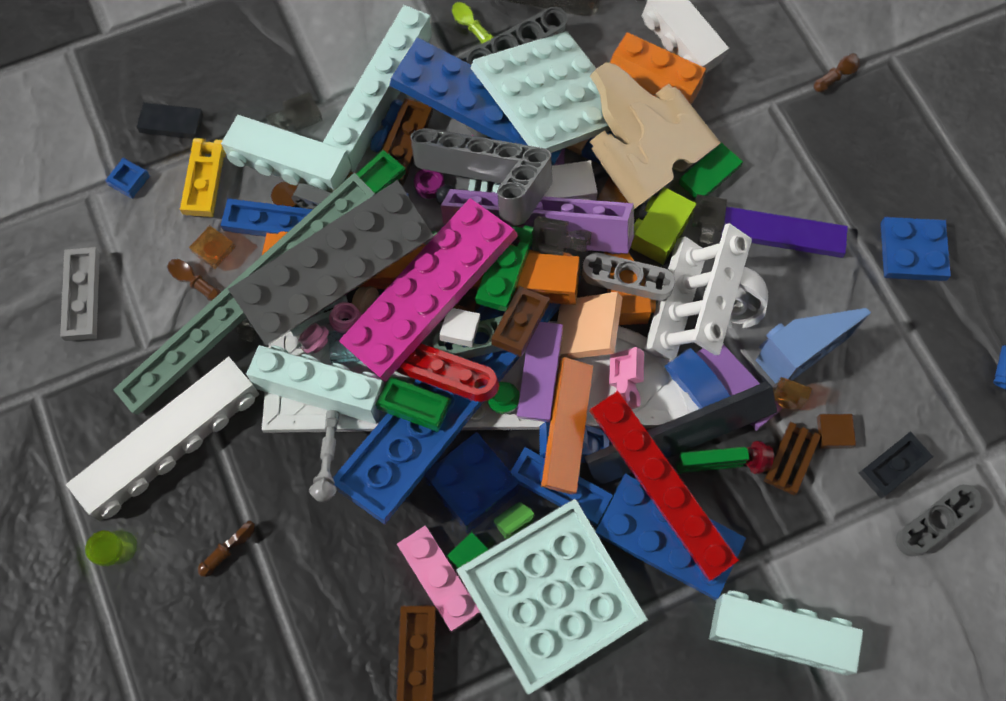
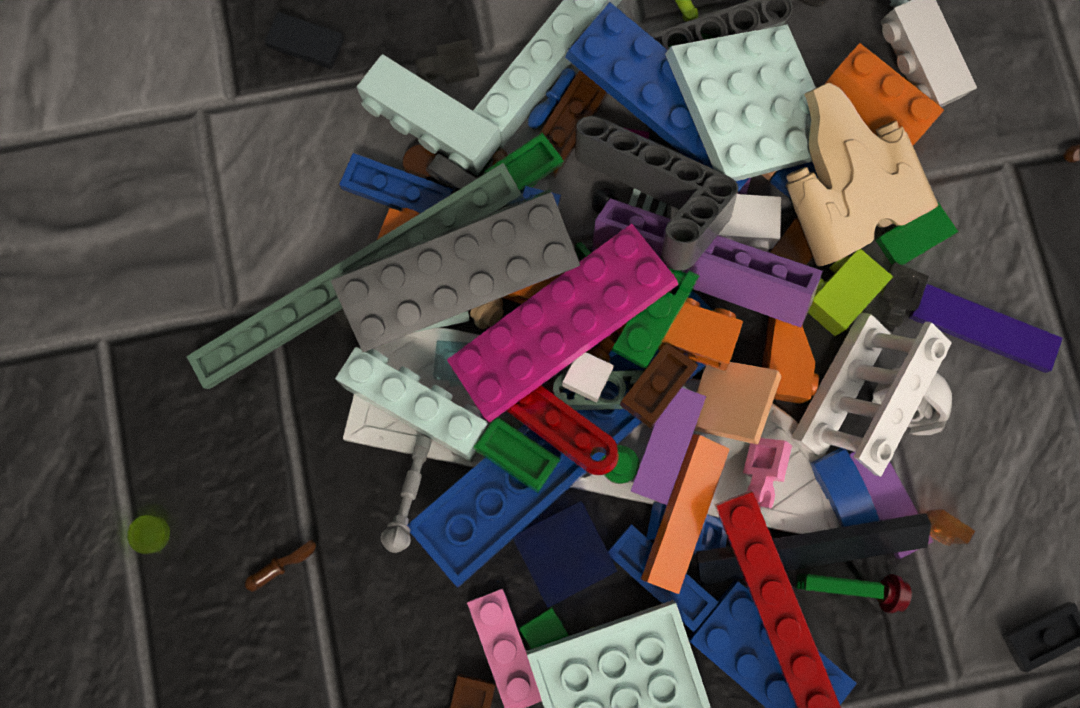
camera: 10 degrees right, 10 degrees up
(80, 294) = (168, 233): light grey plate -> none
(127, 178) = (245, 101): blue tile -> none
(162, 440) = (230, 427): white brick -> none
(184, 273) = (289, 231): reddish brown piece -> none
(202, 178) = (329, 120): yellow plate -> none
(212, 247) = (325, 208): clear orange plate -> none
(313, 338) = (419, 346): bright pink plate -> none
(342, 311) = (461, 320): bright pink plate -> none
(428, 182) = (585, 180): magenta tile -> none
(514, 520) = (601, 603): bright green slope -> none
(553, 237) = (720, 292): clear smoke plate -> none
(635, 288) = (815, 373): light grey beam -> none
(802, 434) = (942, 610): reddish brown tile -> none
(806, 341) = (970, 481): medium blue slope -> none
(836, 431) = (988, 580): reddish brown tile -> none

